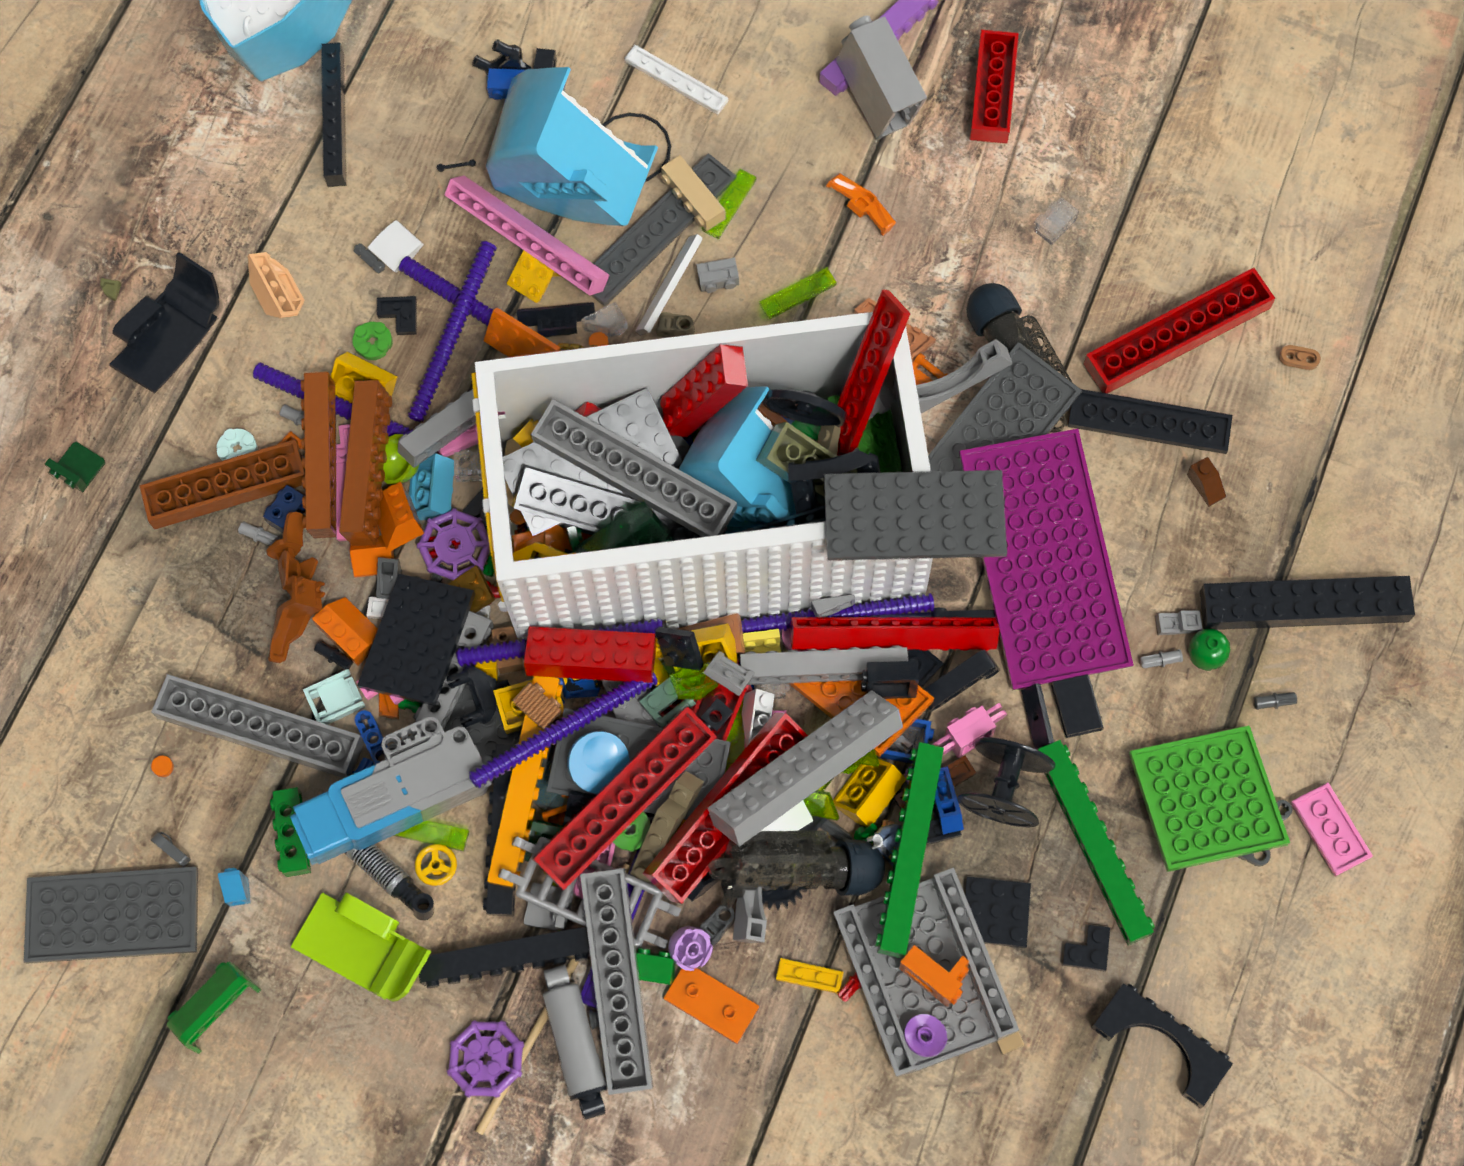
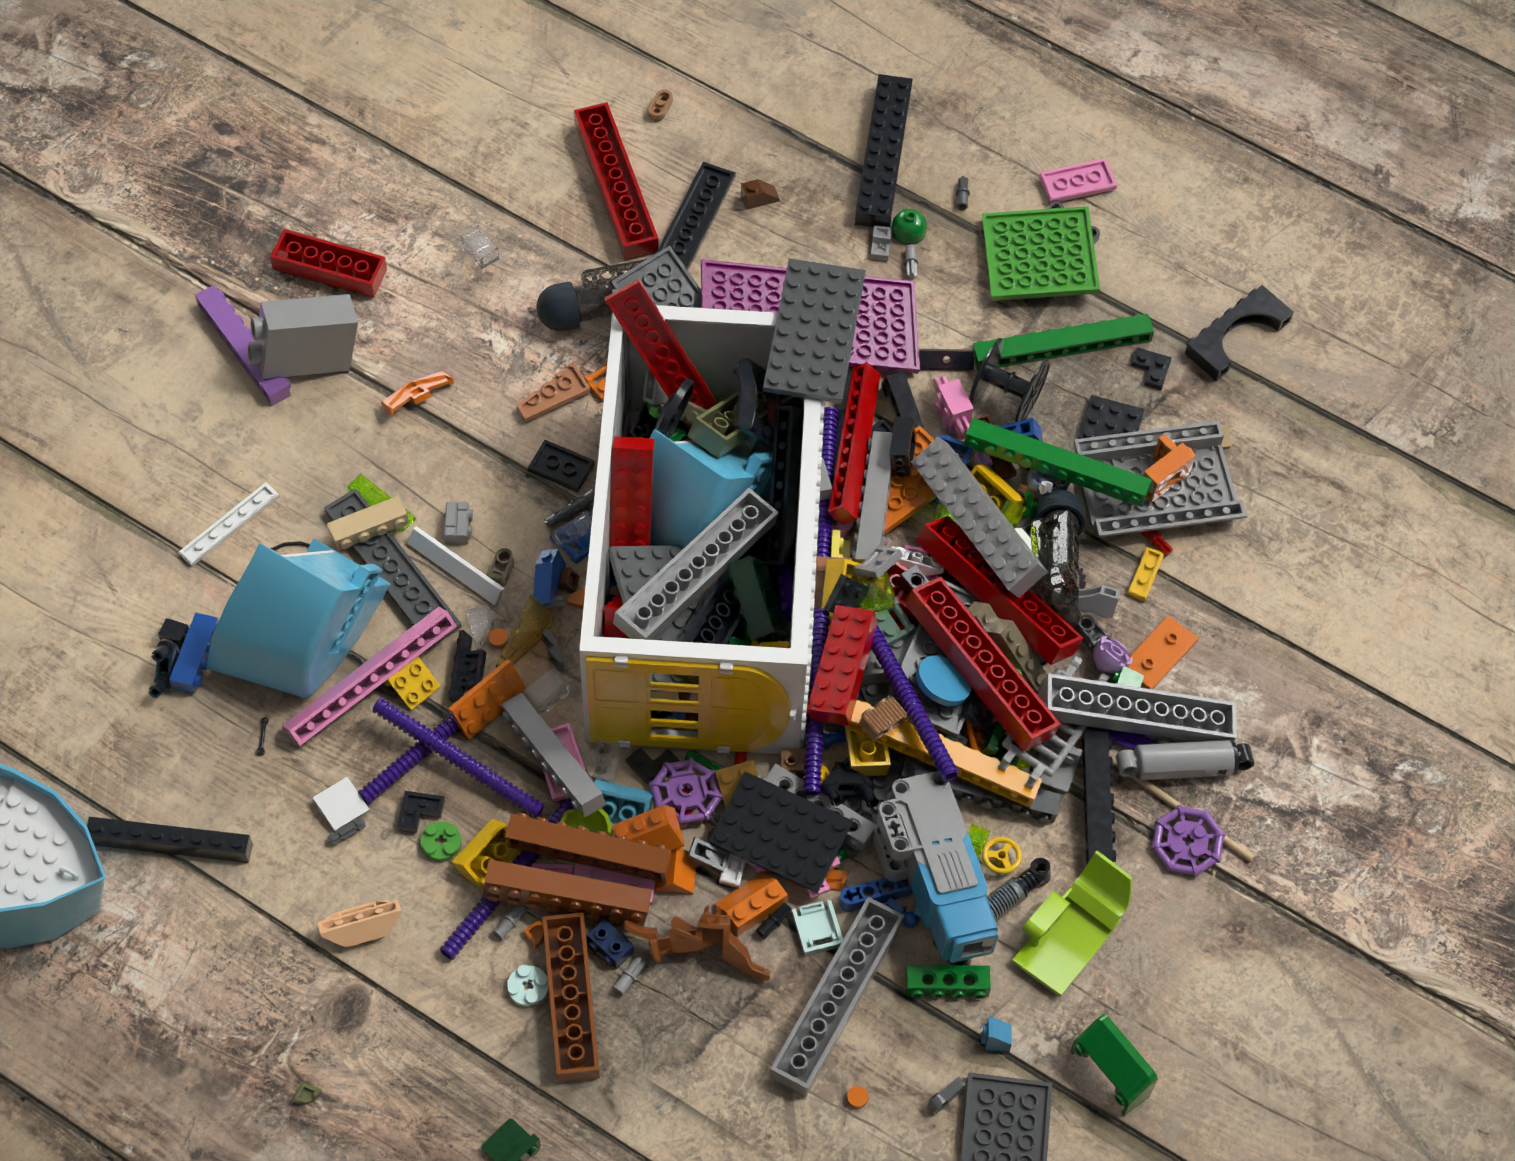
camera: 85 degrees left, 10 degrees down
(167, 329) = (373, 1032): black beam -> none
(798, 293) = (494, 462): clear neon green plate -> none
(930, 1028) = (1214, 489): medium lavender dish -> none
(1077, 706) = (942, 330): black piece -> none

